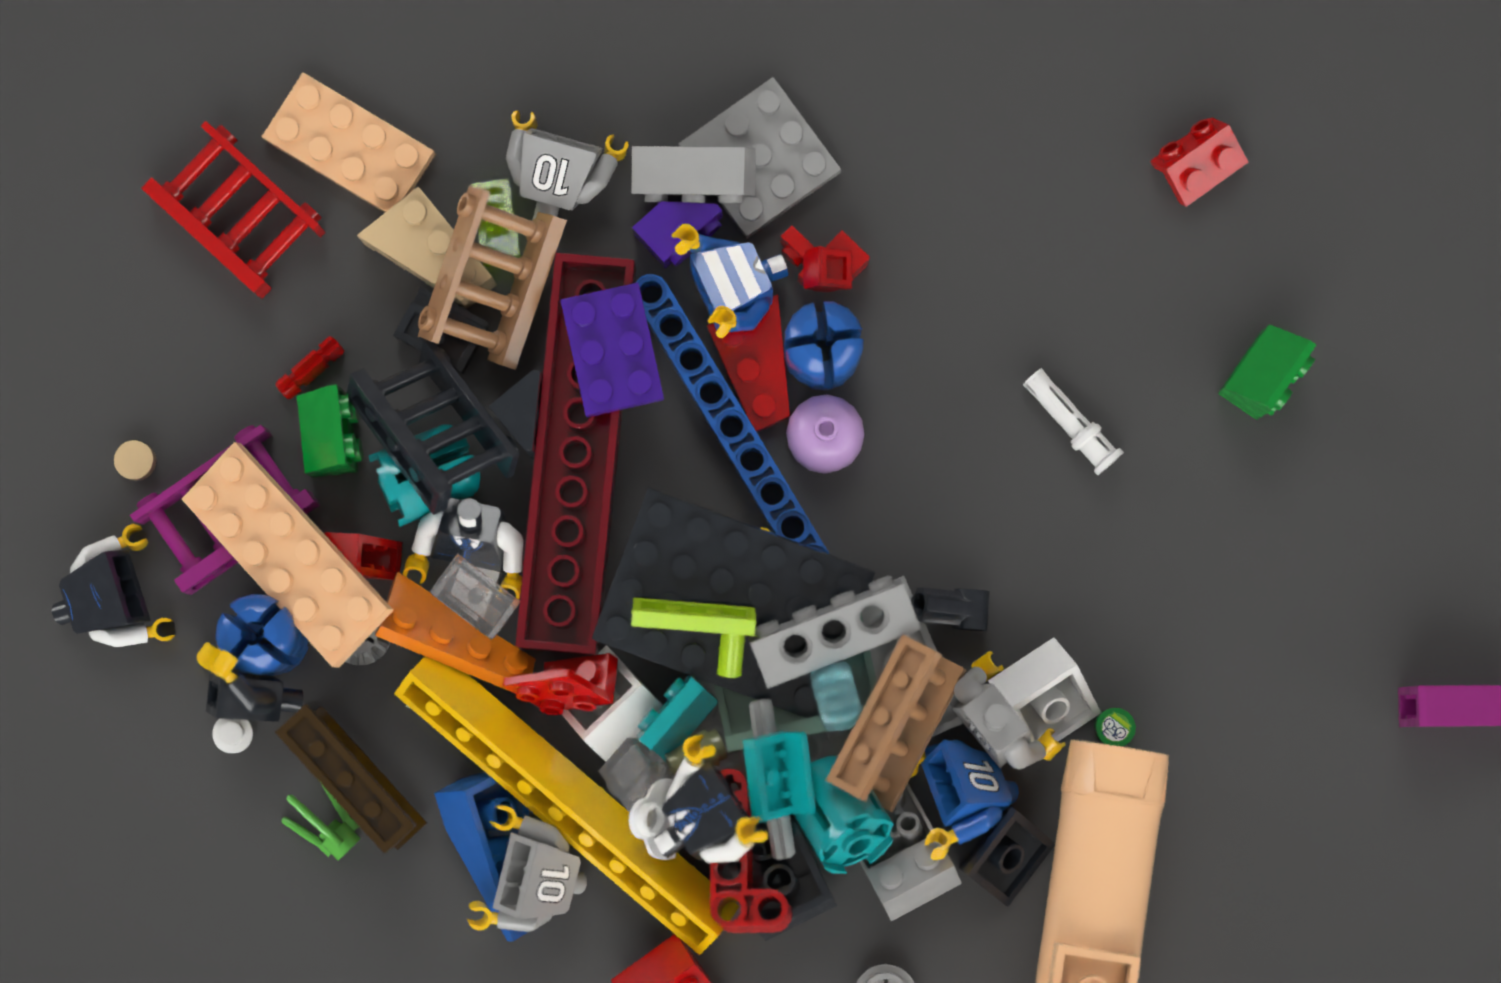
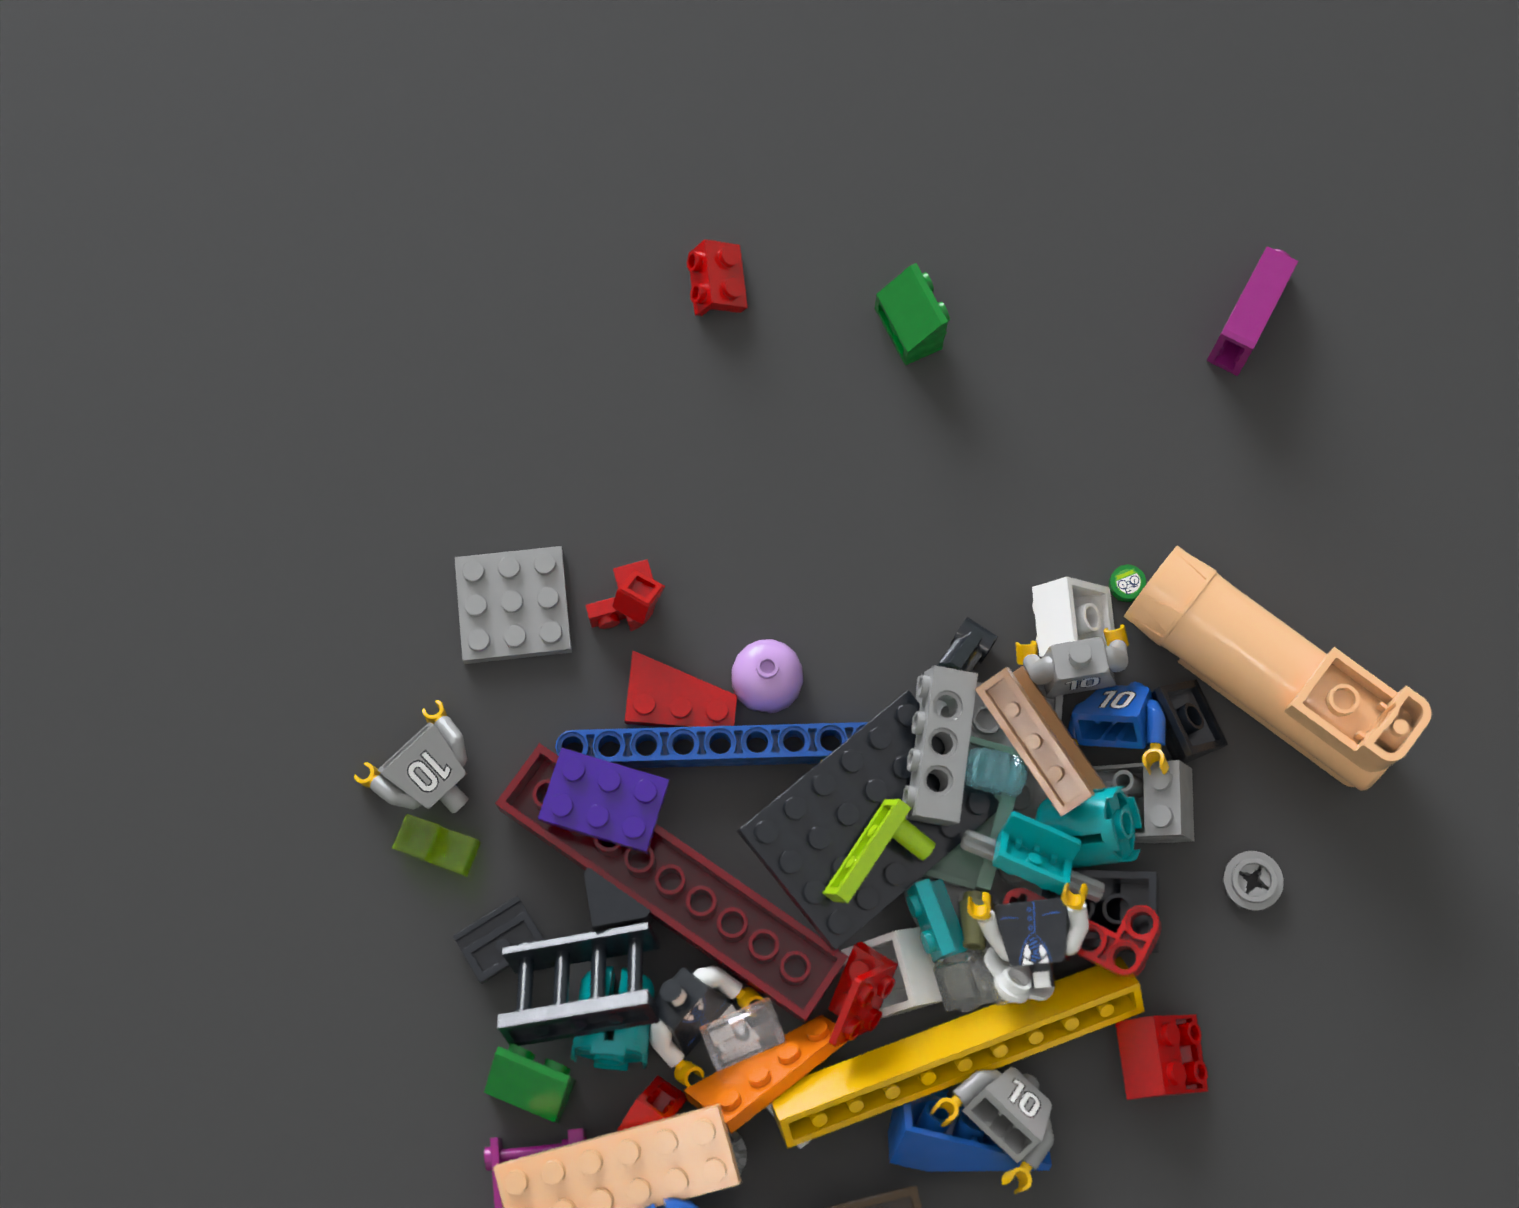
camera: 65 degrees left, 10 degrees down
(198, 220) = (317, 1085): red fence -> none
(309, 367) = (464, 1071): red axle -> none
(348, 144) = (295, 933): light nougat plate -> none
(417, 240) = (425, 909): tan wedge -> none
(529, 273) = (510, 848): medium nougat fence -> none
(658, 225) = (529, 702): dark purple slope -> none
(693, 173) = (495, 659): light grey brick -> none
(730, 279) = (600, 678): torso -> none
(837, 328) = (713, 632): blue cylinder -> none
(1084, 435) = (882, 478): white pin -> none

